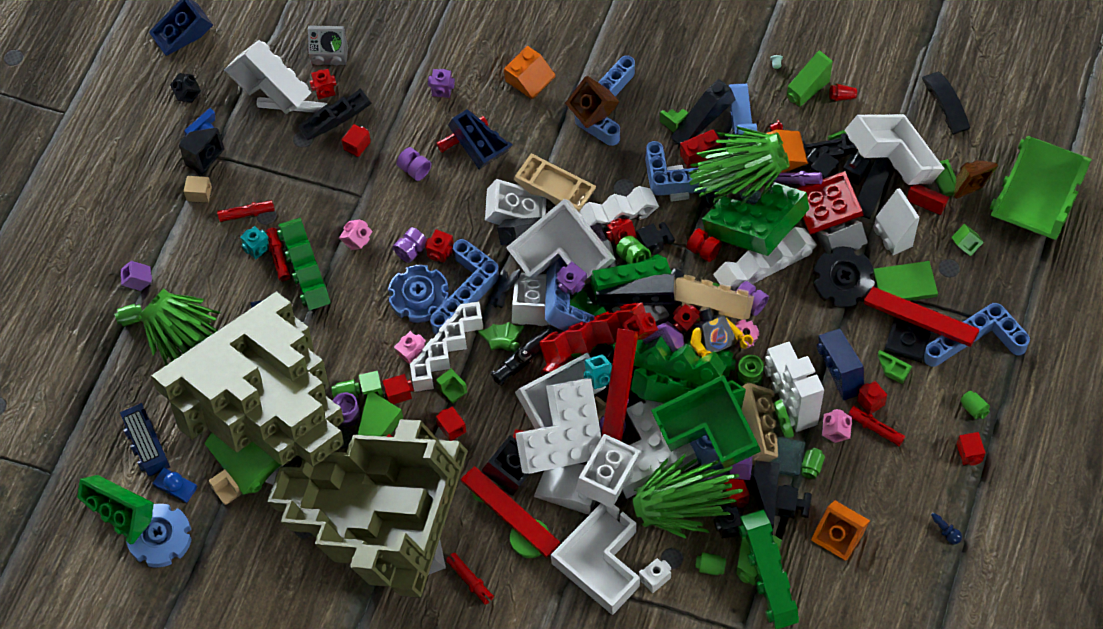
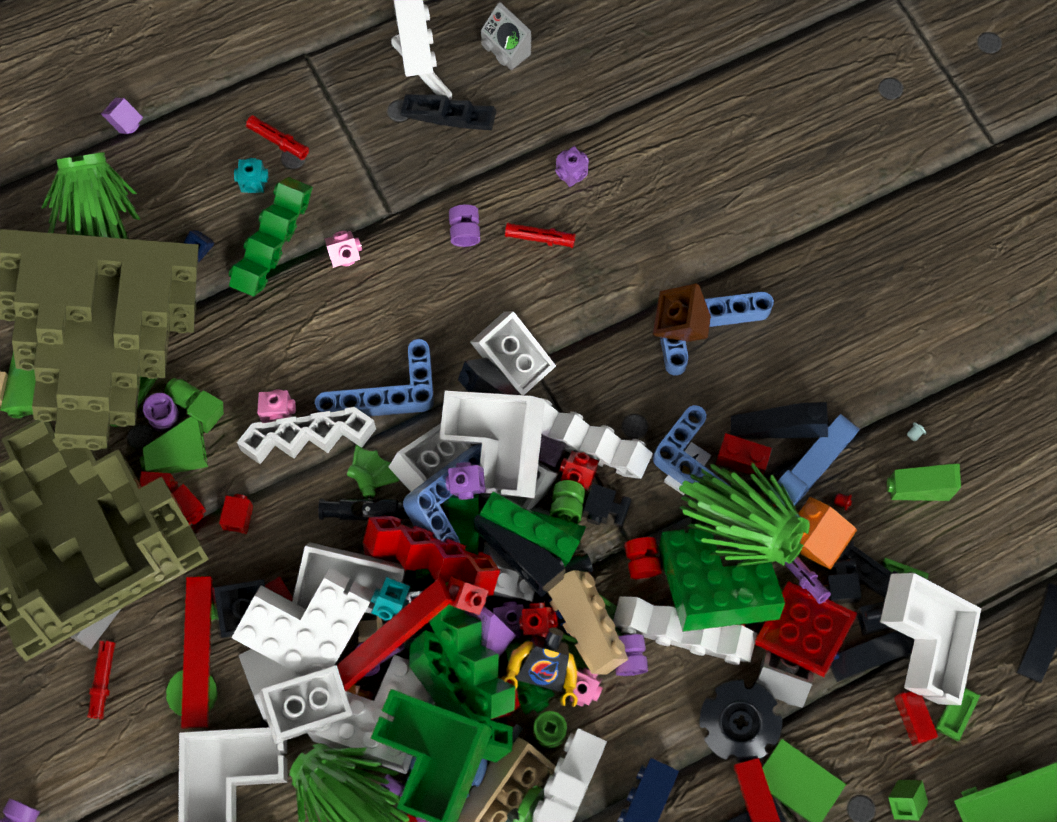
camera: 40 degrees right, 10 degrees up
(128, 314) = (80, 145): bright green brick -> none
(197, 189) = (257, 78): tan panel -> none
(201, 148) = (295, 42): black slope -> none
(202, 122) = (321, 20): blue tile -> none
(276, 248) = (265, 198): red pin -> none
(323, 83) = (466, 71): red brick -> none
(356, 140) = (440, 155): red brick -> none
(398, 389) = (224, 435): red brick -> none
(405, 290) = (337, 342): medium blue piece -> none
(412, 243) = (379, 304): medium lavender wheel -> none
(439, 246) = (402, 329): red brick -> none
(451, 386) = (275, 477): bright green panel -> none
(478, 139) = (542, 255): dark blue wedge -> none
(505, 284) = (424, 423): black piece -> none
(528, 72) = (663, 228): orange slope -> none
(553, 183) = (568, 364): tan slope -> none
(672, 118) = (751, 399): bright green panel -> none
(841, 92) = (947, 525): red cone -> none
(897, 223) = (846, 718): white slope -> none
(973, 177) = (981, 739): reddish brown slope -> none

